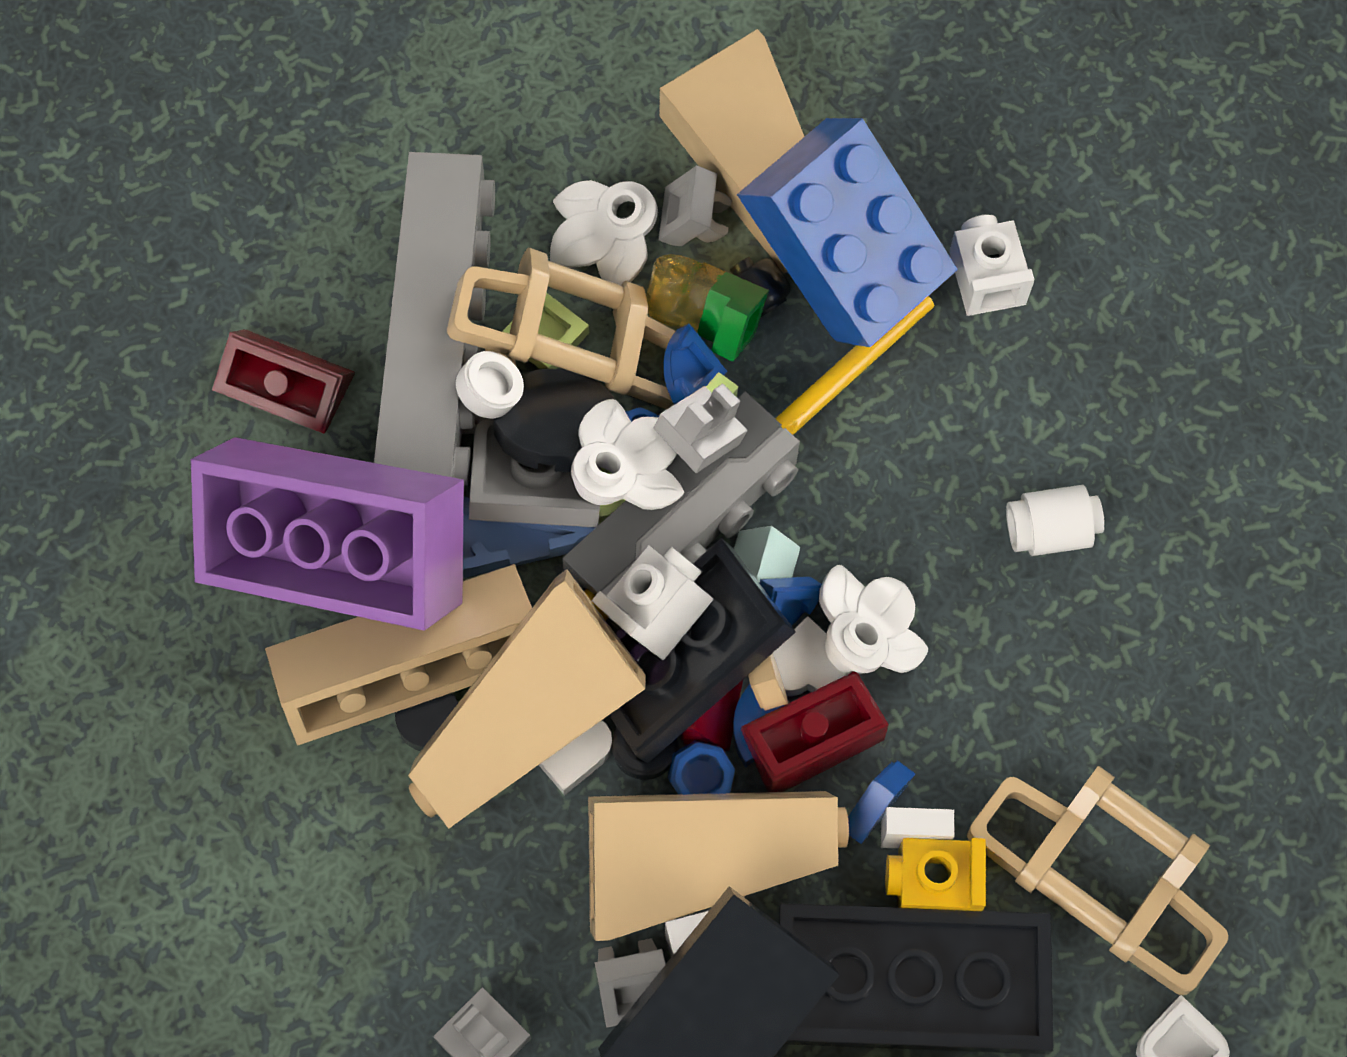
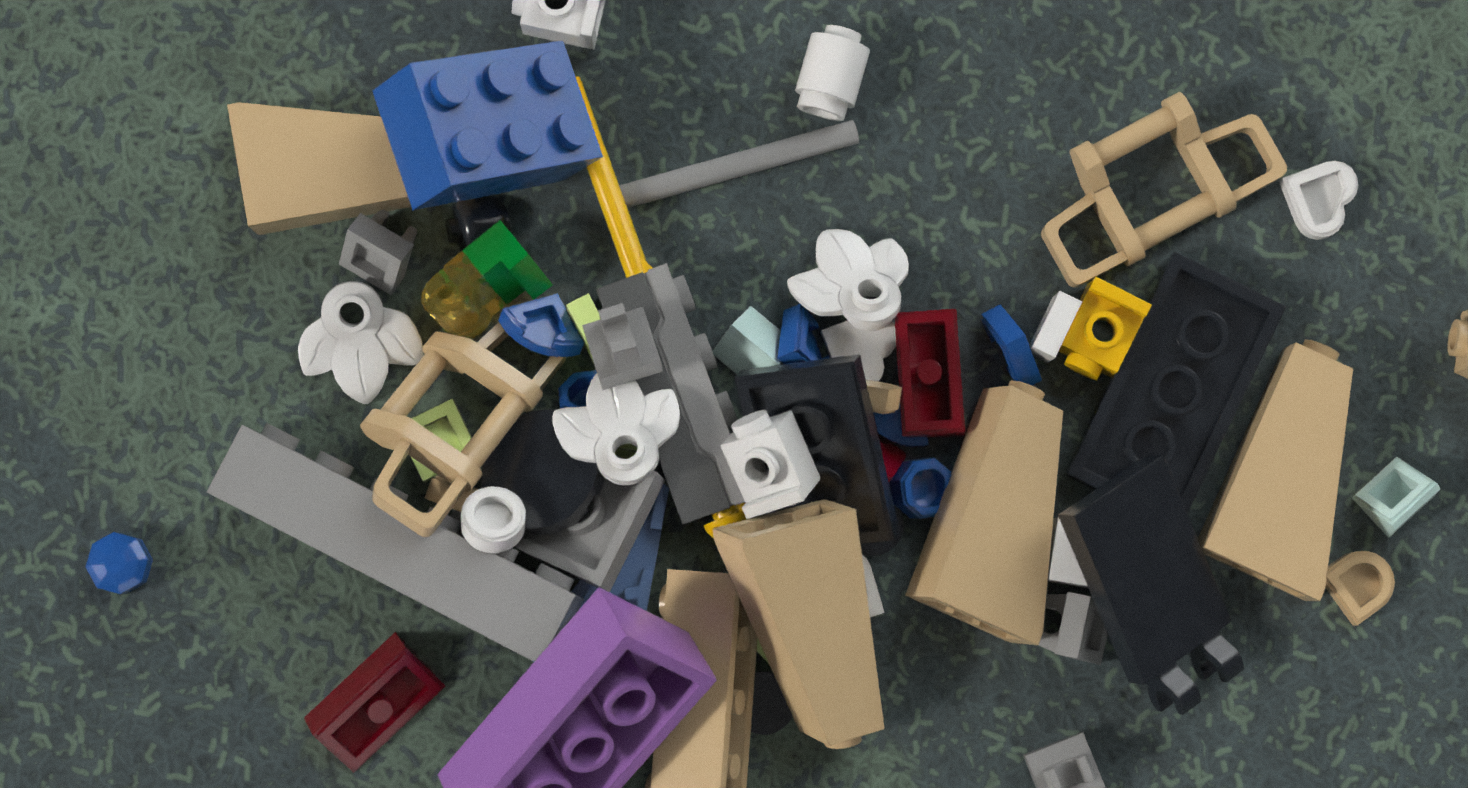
camera: 70 degrees left, 15 degrees up
(318, 124) = (119, 563): none -> blue tile
(927, 481) = (740, 164): none -> light grey bar

